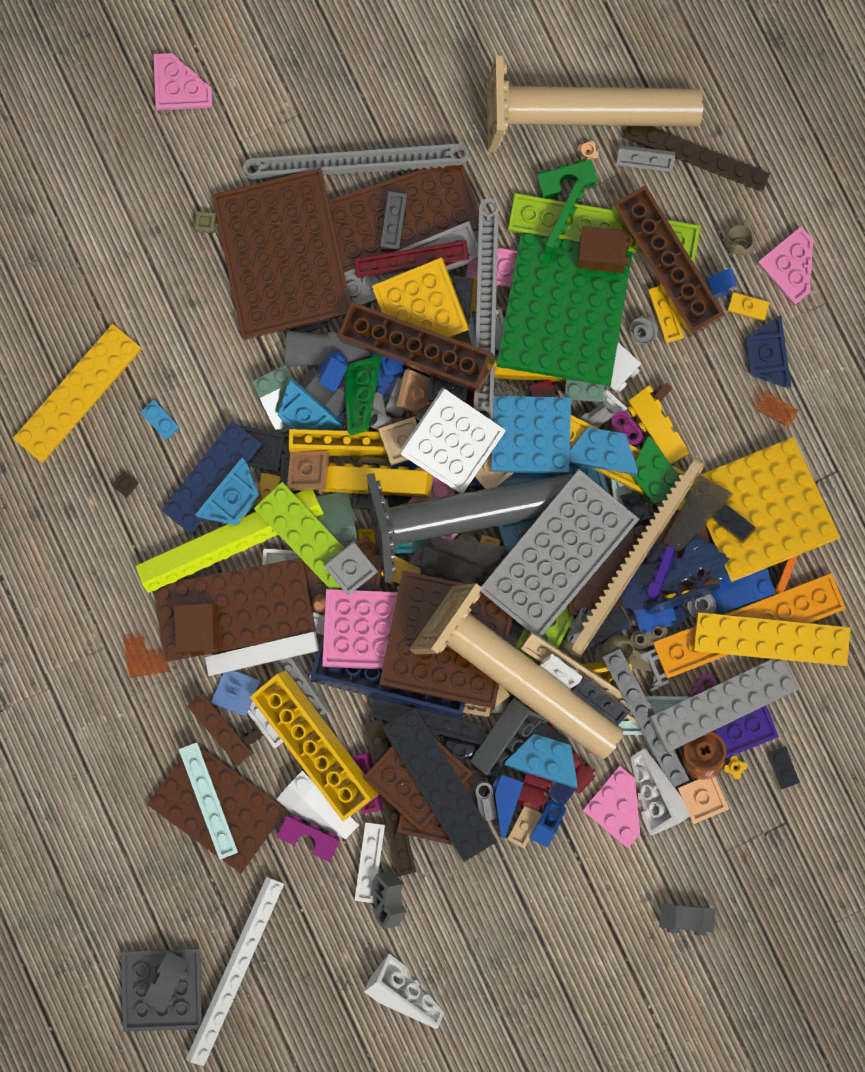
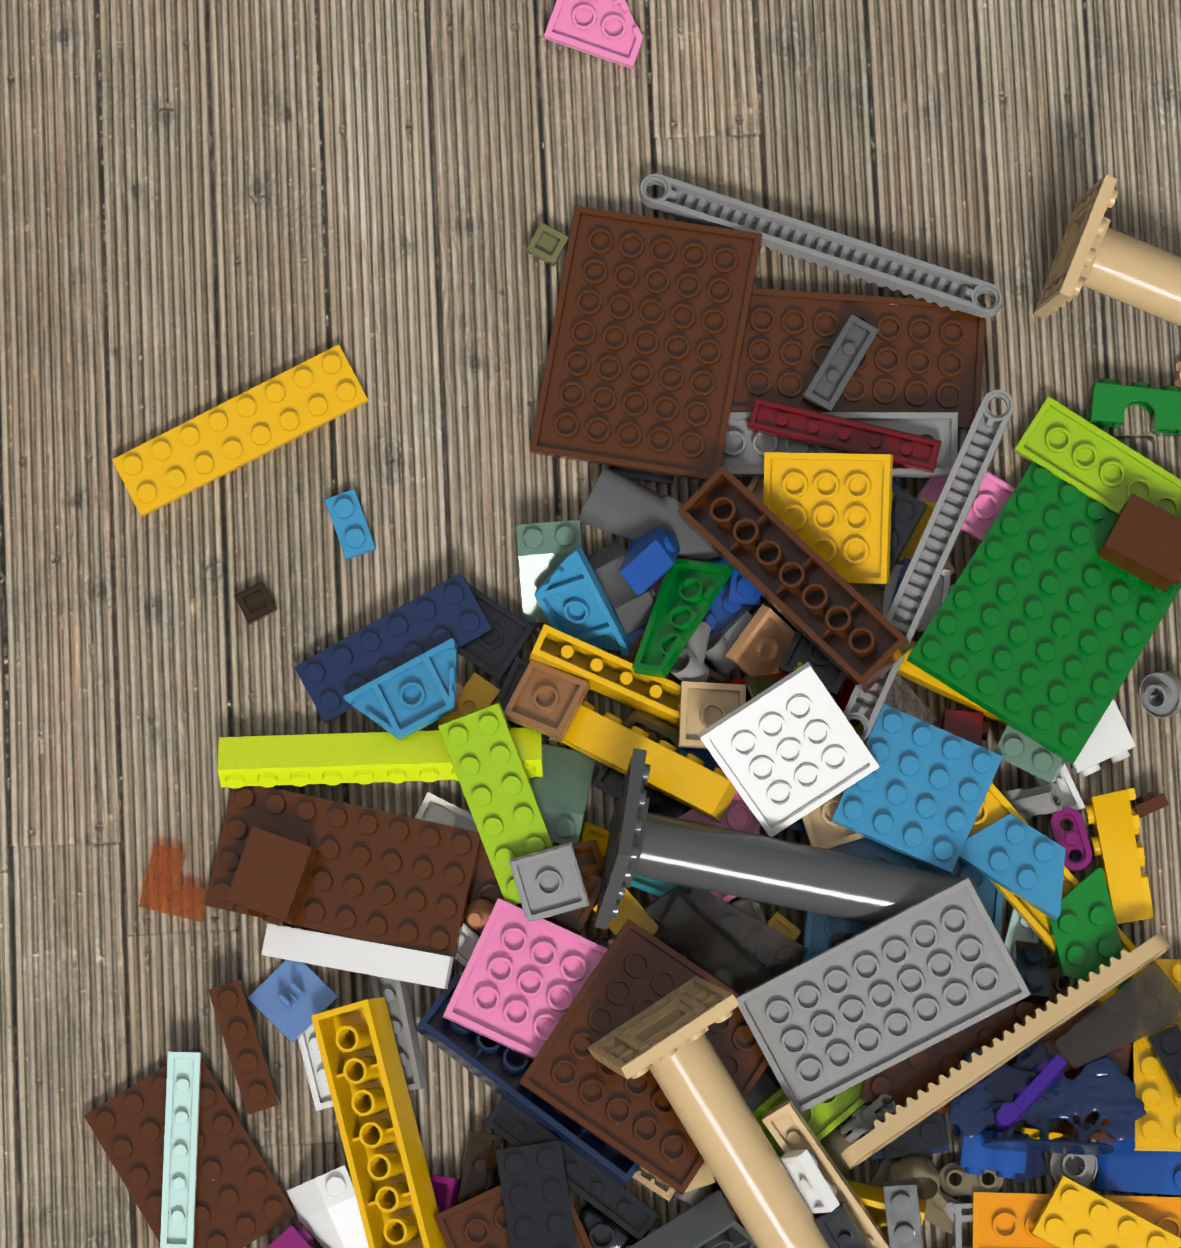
camera: 20 degrees right, 0 degrees up
(252, 736) = (290, 1077): dark brown plate -> none
(568, 211) = (1121, 460): green plate -> none

